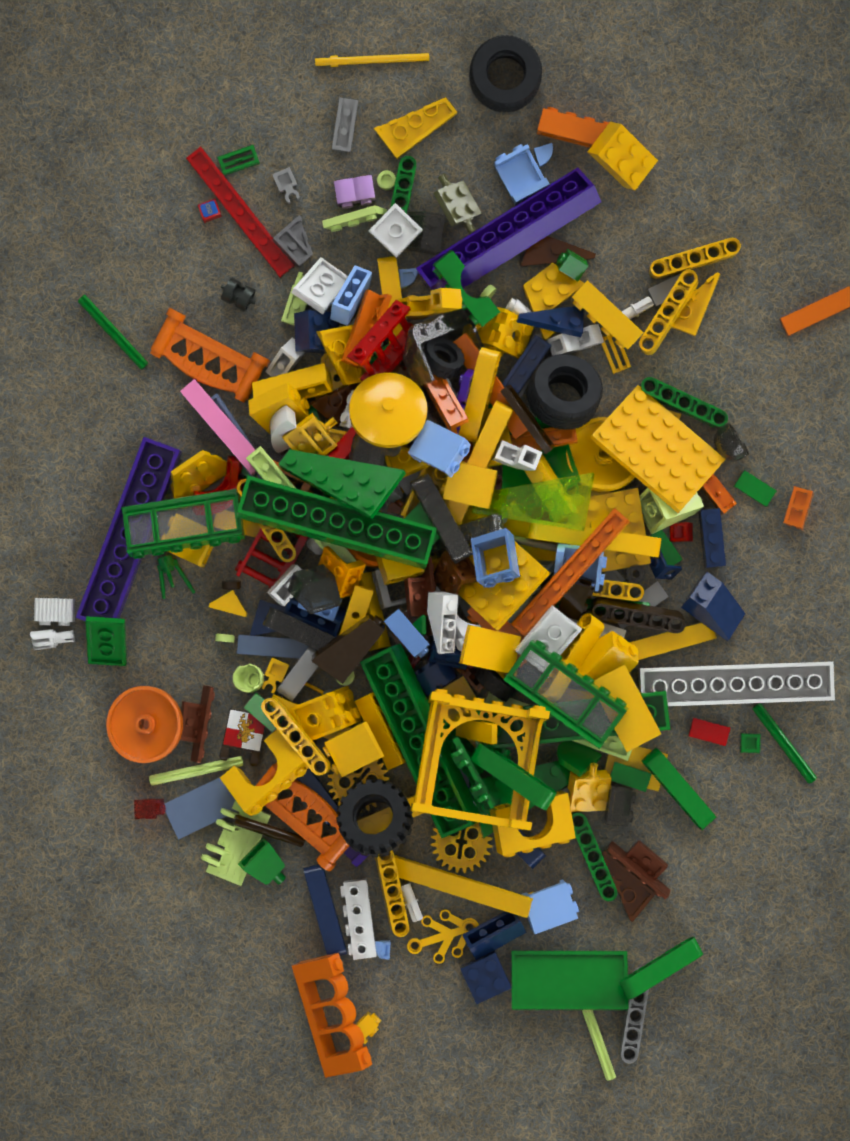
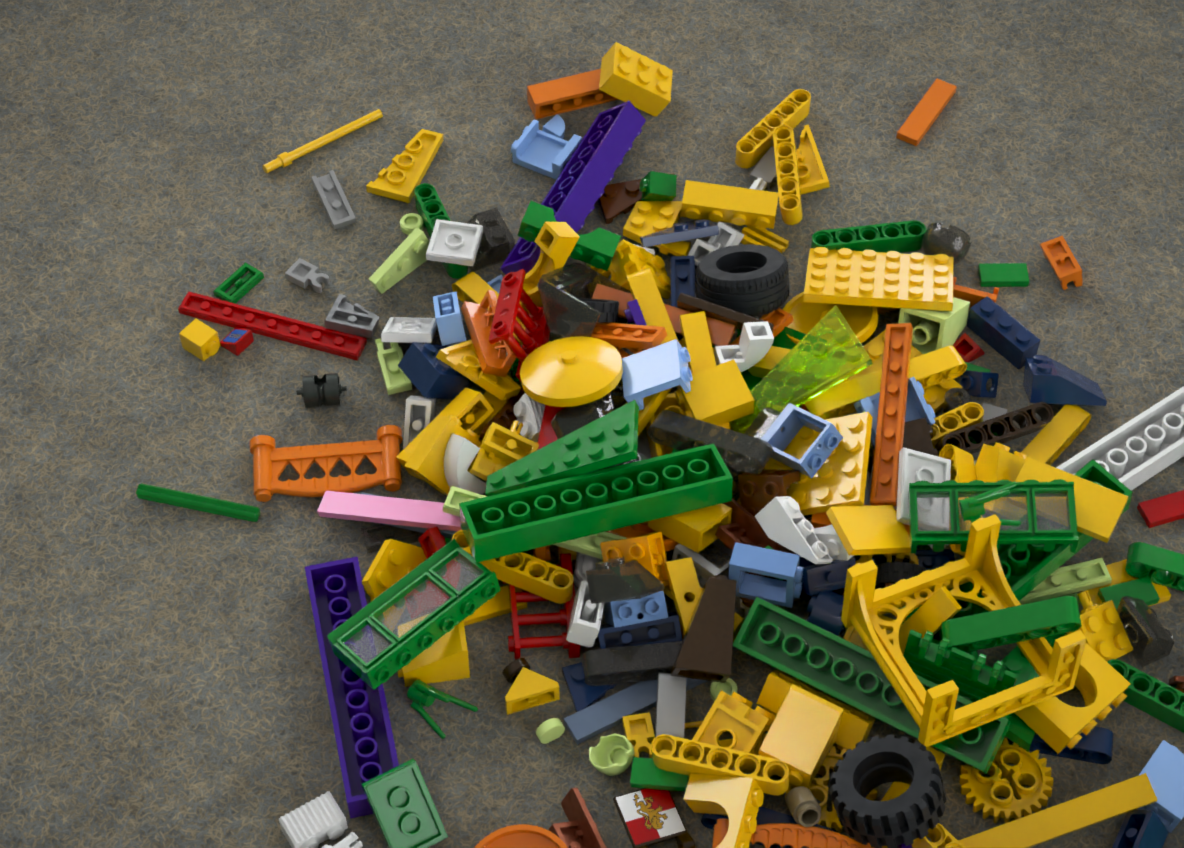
camera: 30 degrees left, 35 degrees down
(184, 198) = (200, 340): none -> yellow brick
(328, 788) = (803, 806): none -> dark tan brick
(354, 191) = (380, 244): lavender brick -> none
(457, 203) = (499, 197): olive plate -> none
(511, 48) = (468, 101): black tyre -> none
(551, 689) = (973, 507): none -> green plant

